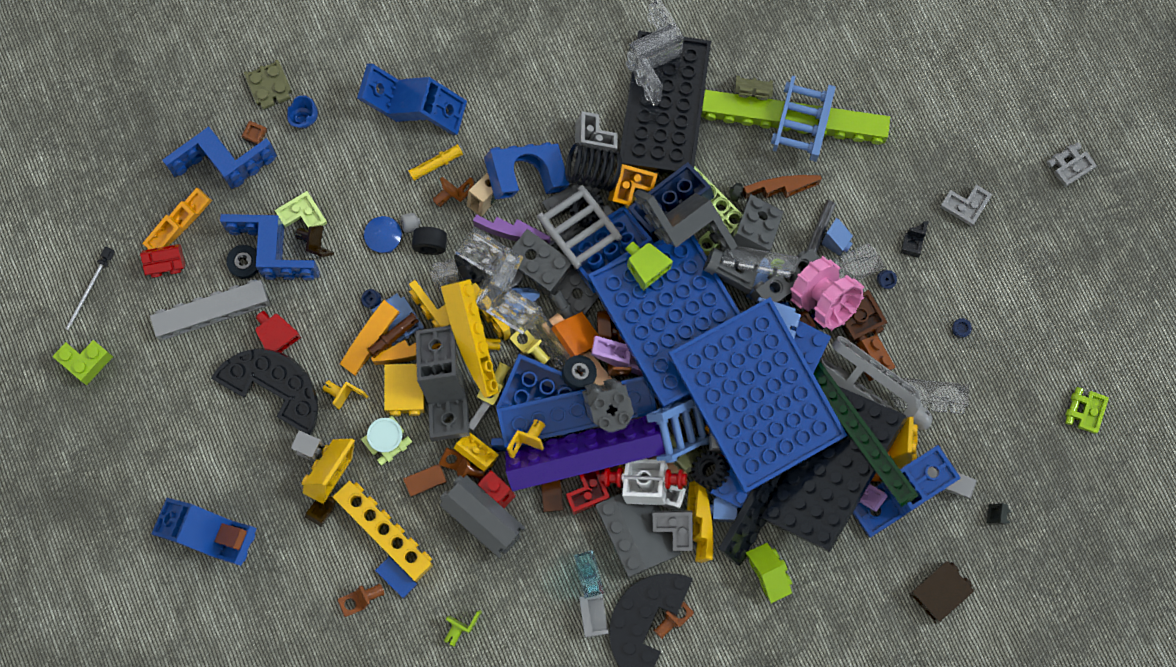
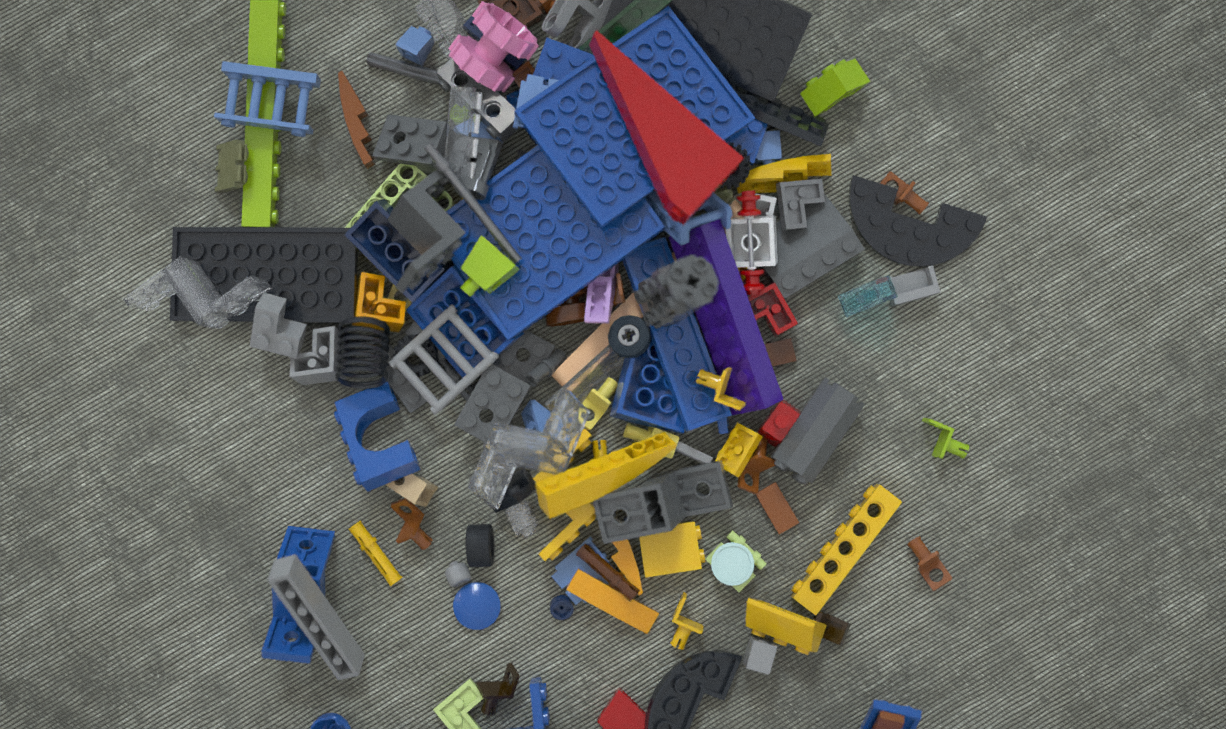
camera: 95 degrees left, 10 degrees up
(391, 106) = (316, 617): none -> light grey brick
(396, 577) = (897, 526): blue tile -> none
(506, 230) = (455, 438): medium lavender slope -> none
(575, 334) = (579, 346): orange tile -> none
(618, 102) = (273, 331): none -> light grey brick
(724, 420) = (676, 147): none -> red slope
(731, 238) = (443, 166): none -> flat silver bar
(735, 191) = (369, 175): pearl dark grey tile -> none

